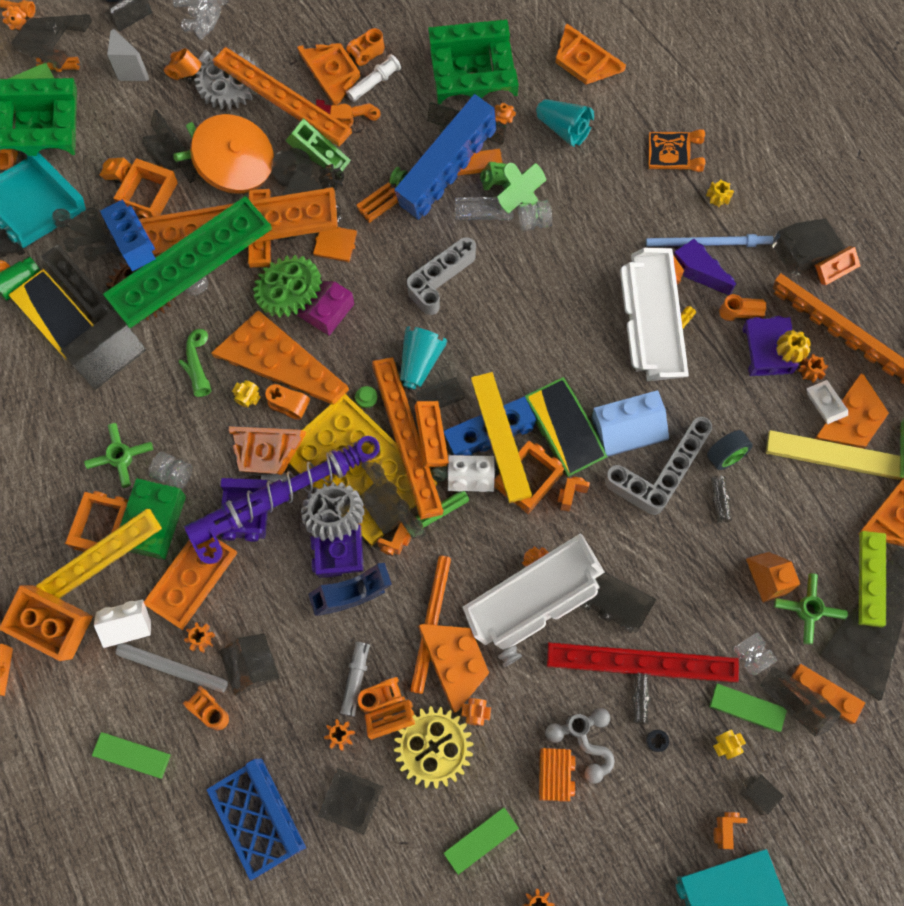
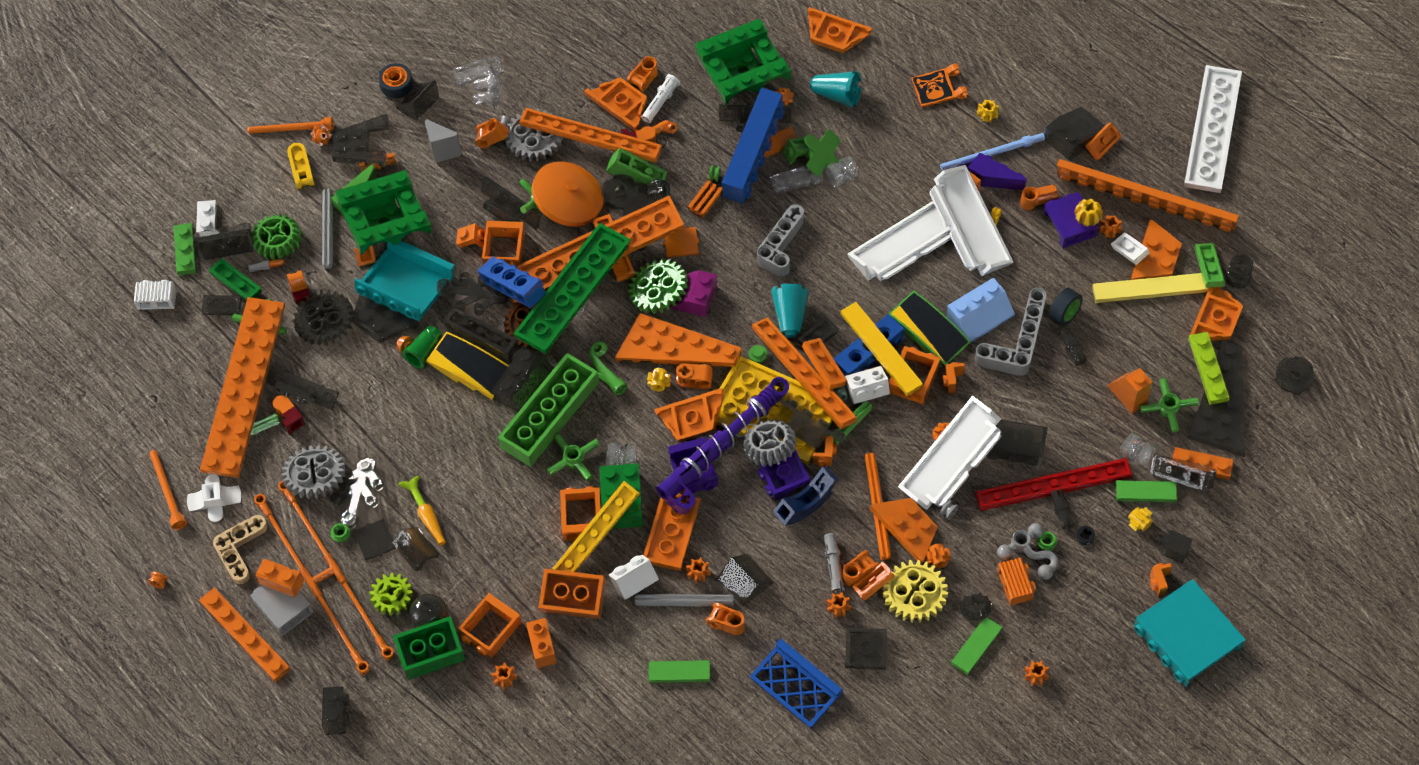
camera: 15 degrees left, 10 degrees down
(112, 392) = (548, 410): none -> bright green brick
(505, 798) = (970, 612): none -> clear smoke gear
(570, 317) = (901, 244): none -> white slope
(617, 734) = (1047, 536): none -> bright green plate

